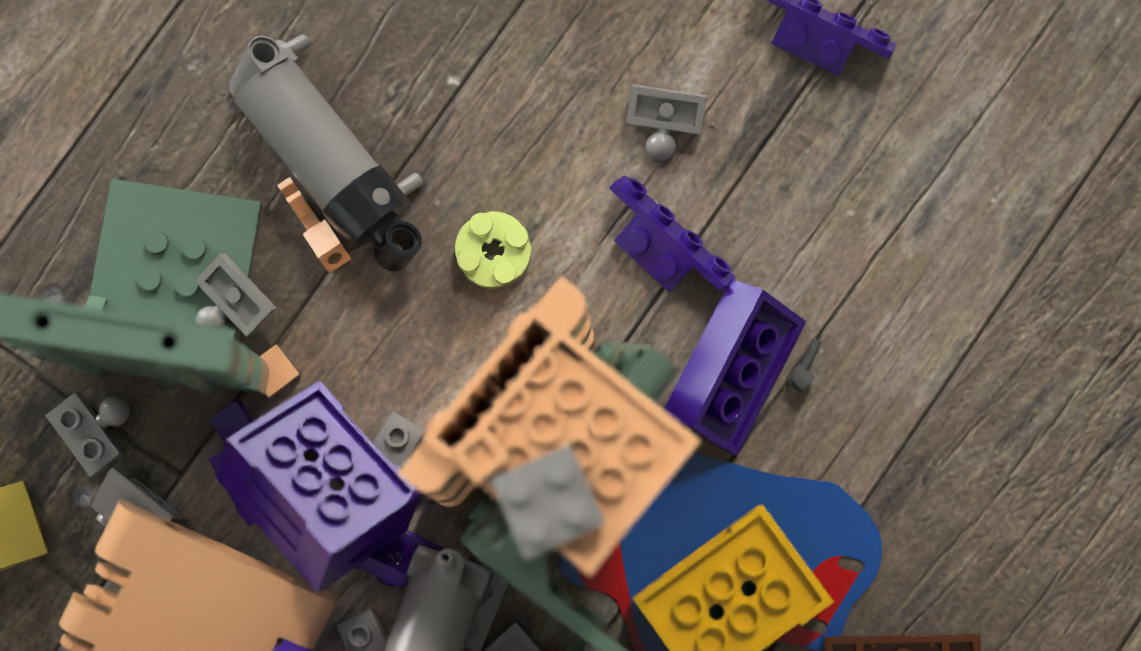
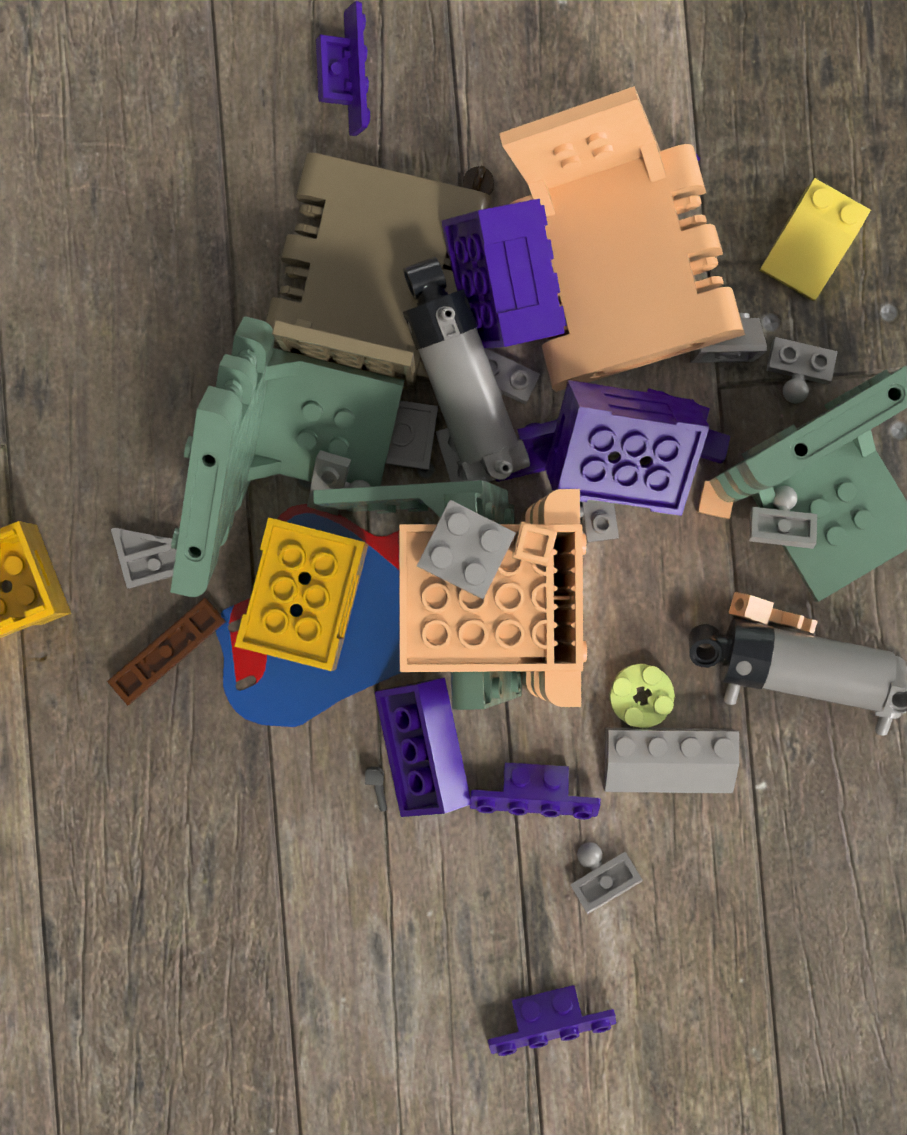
camera: 140 degrees right, 5 degrees up
(515, 170) = (671, 760): none -> light grey slope

